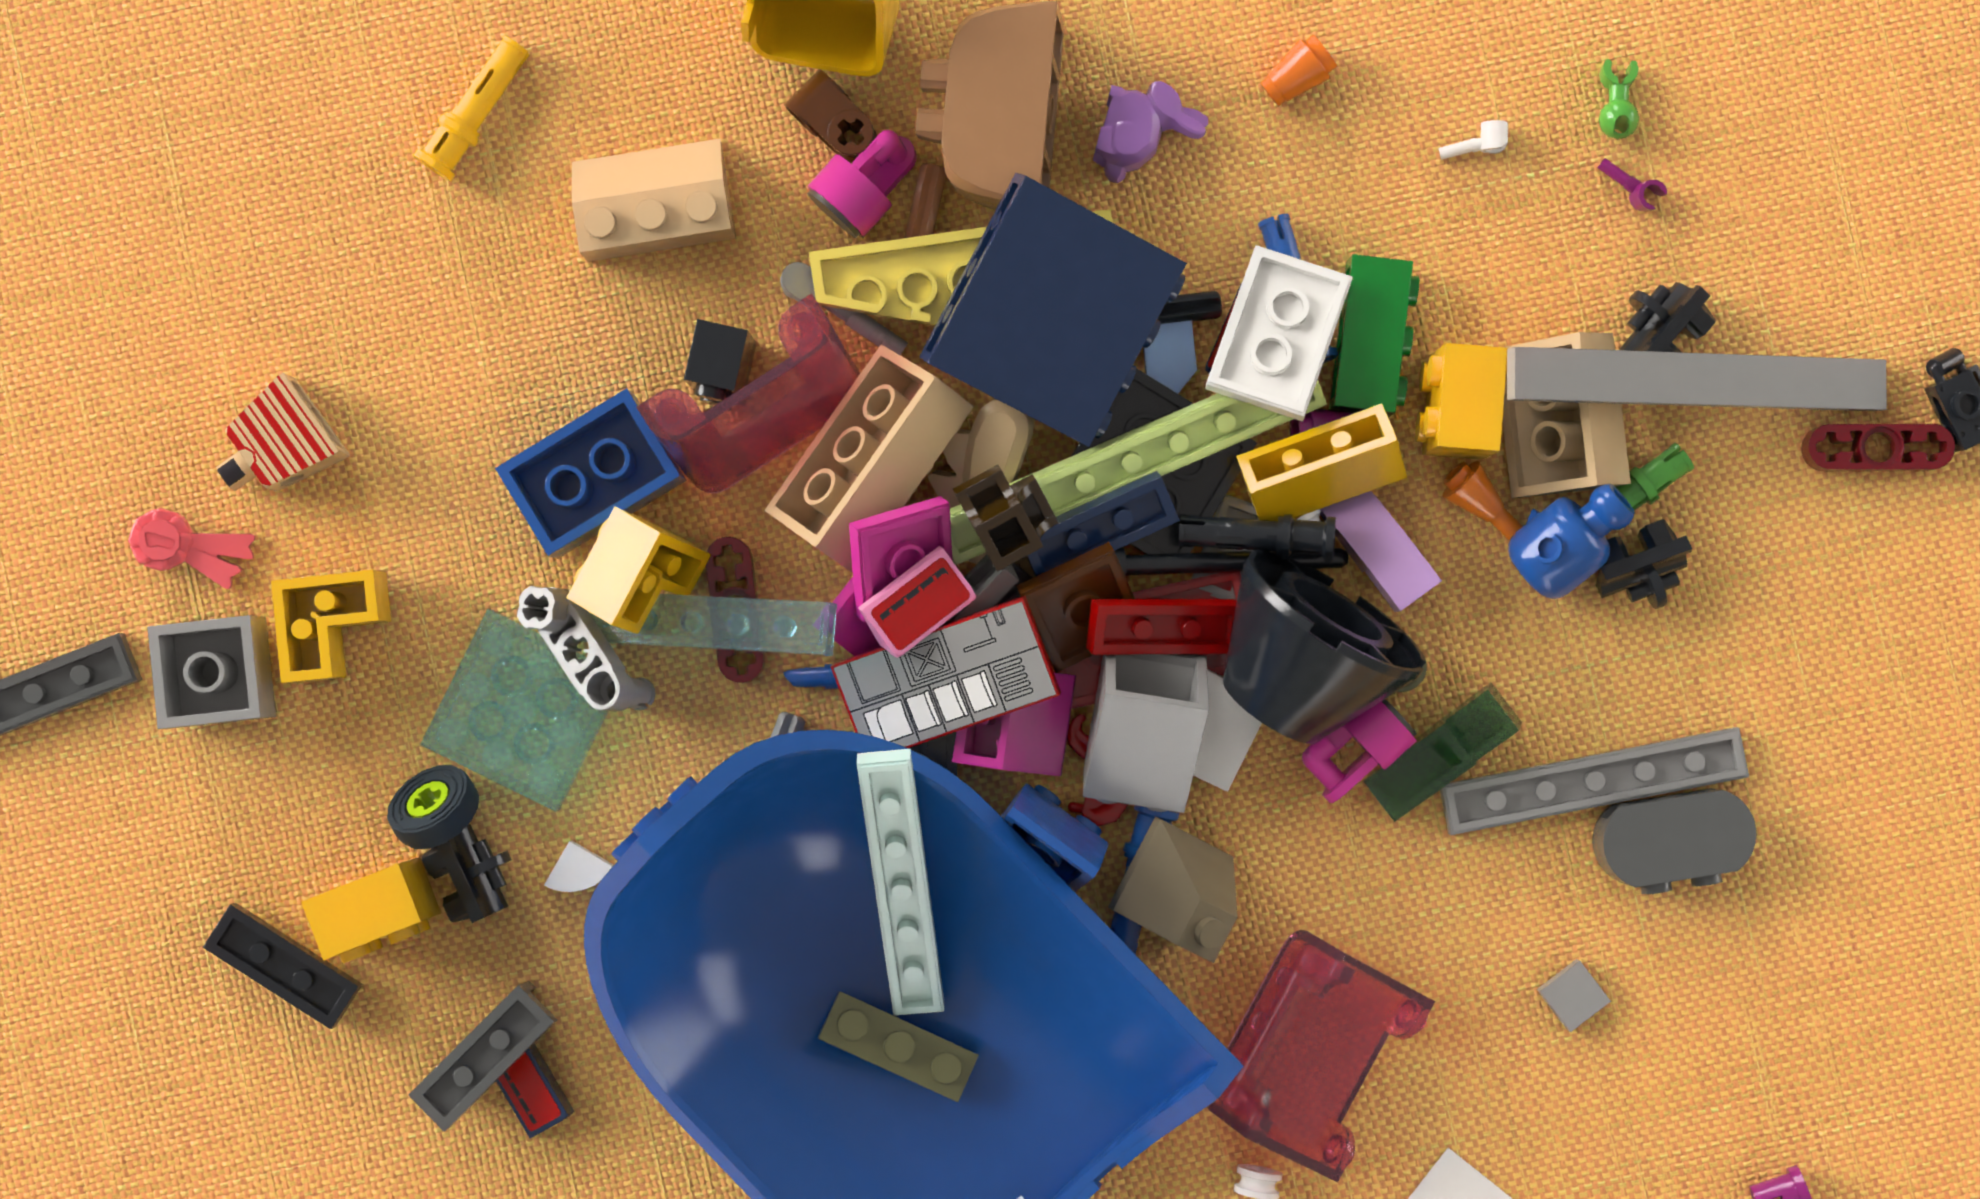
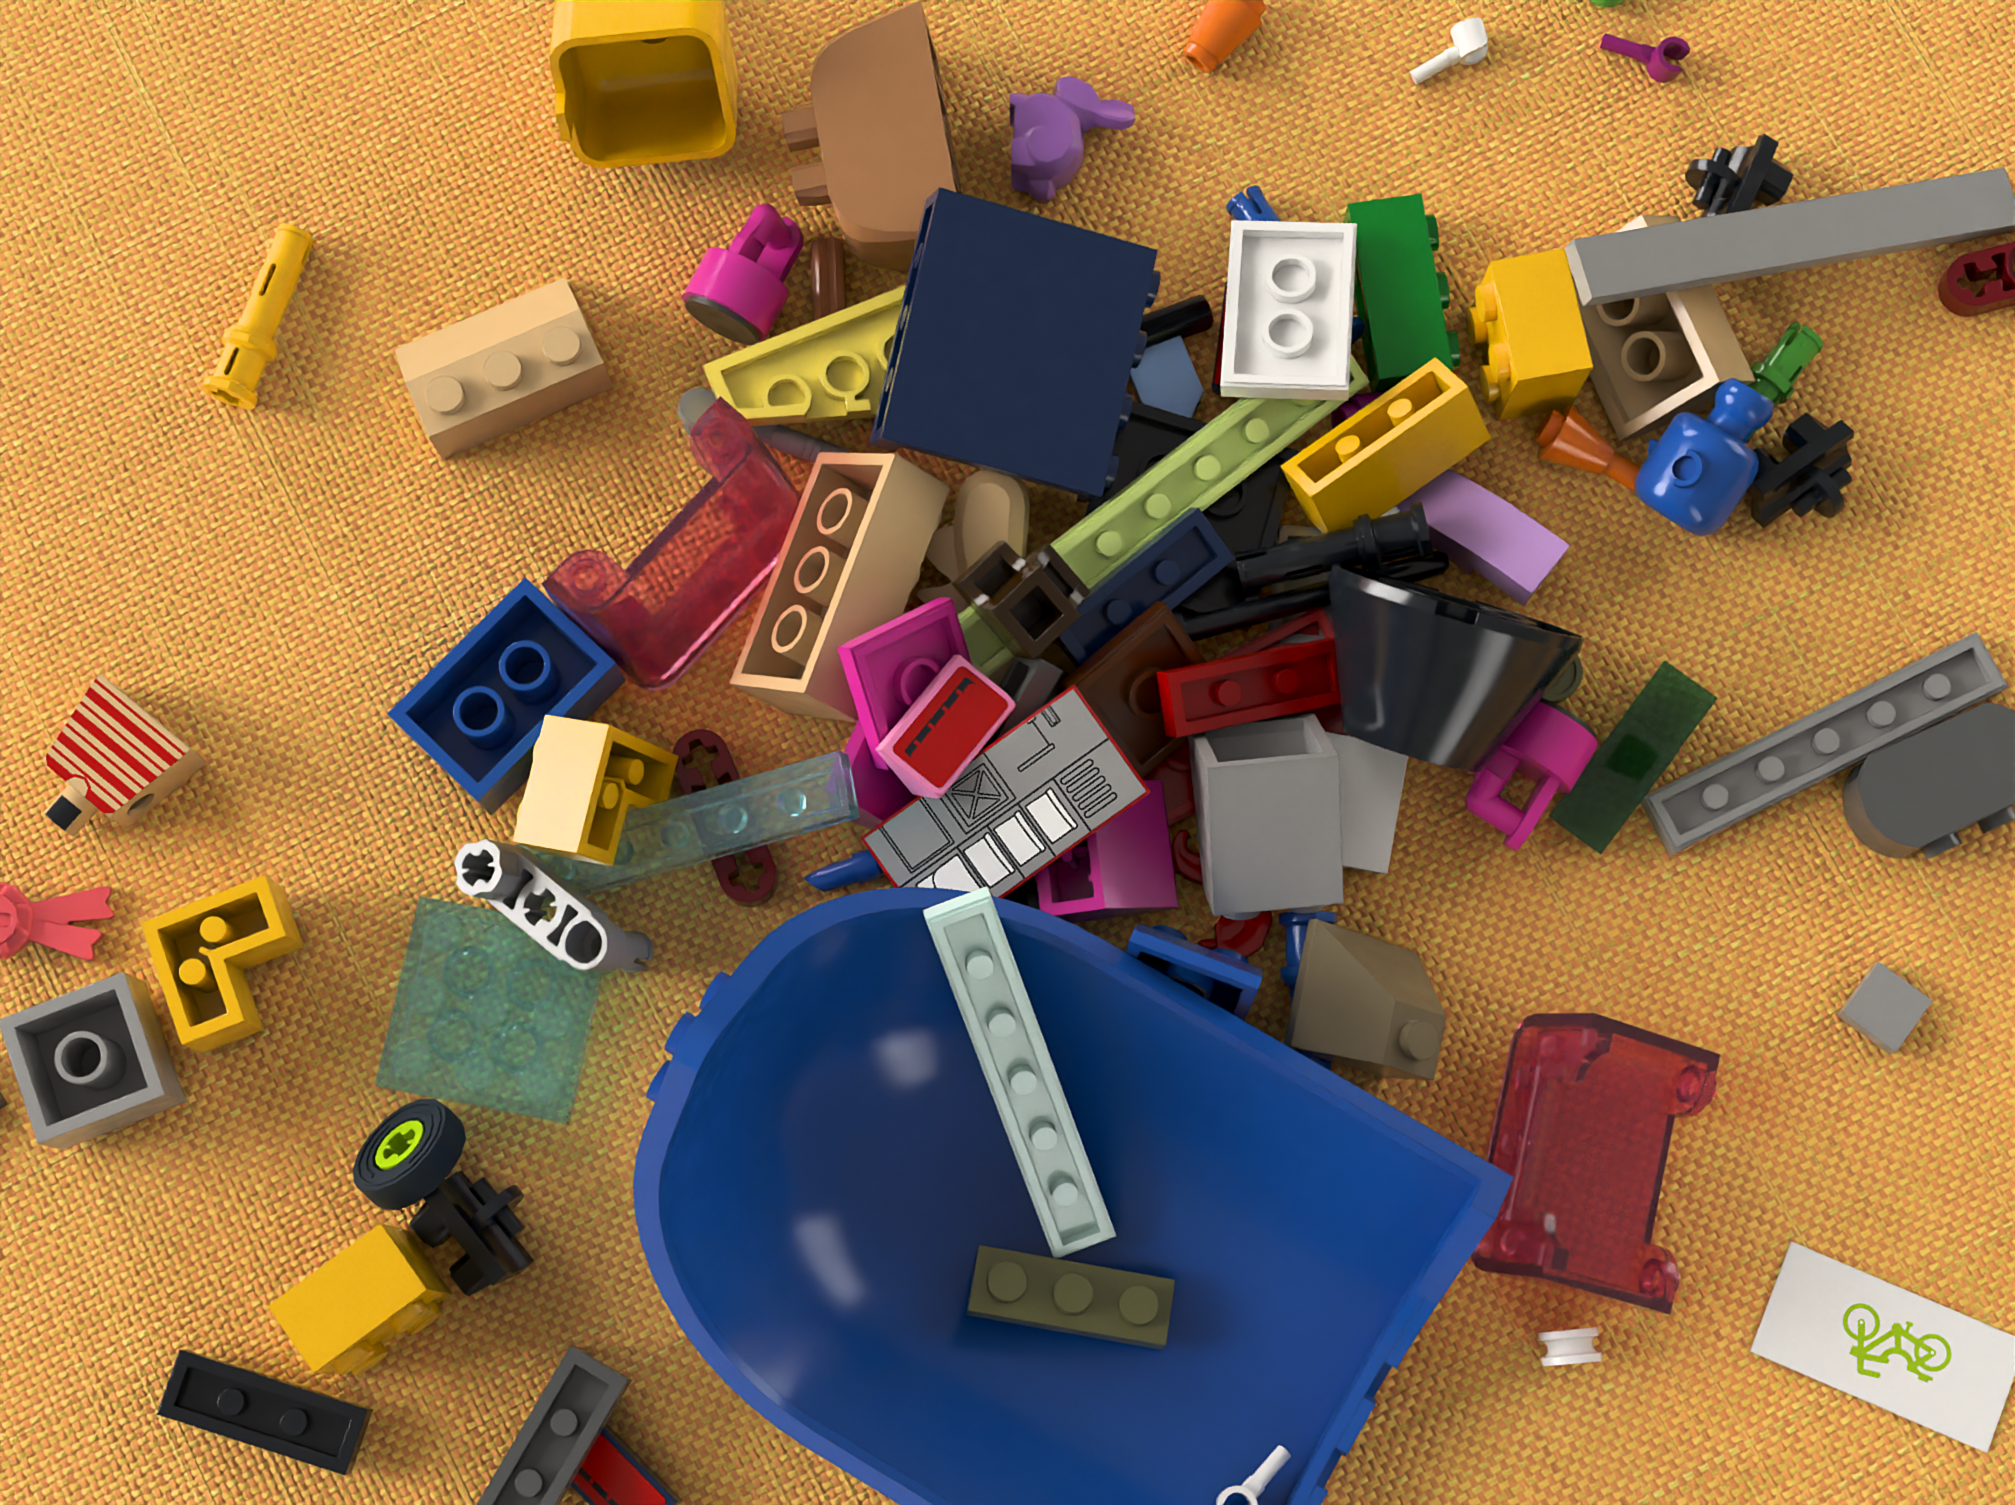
camera: 15 degrees left, 10 degrees down
(577, 869) = (605, 1190): white tile -> none
(719, 361) = (626, 509): black brick -> none
(829, 114) = (688, 212): reddish brown piece -> none

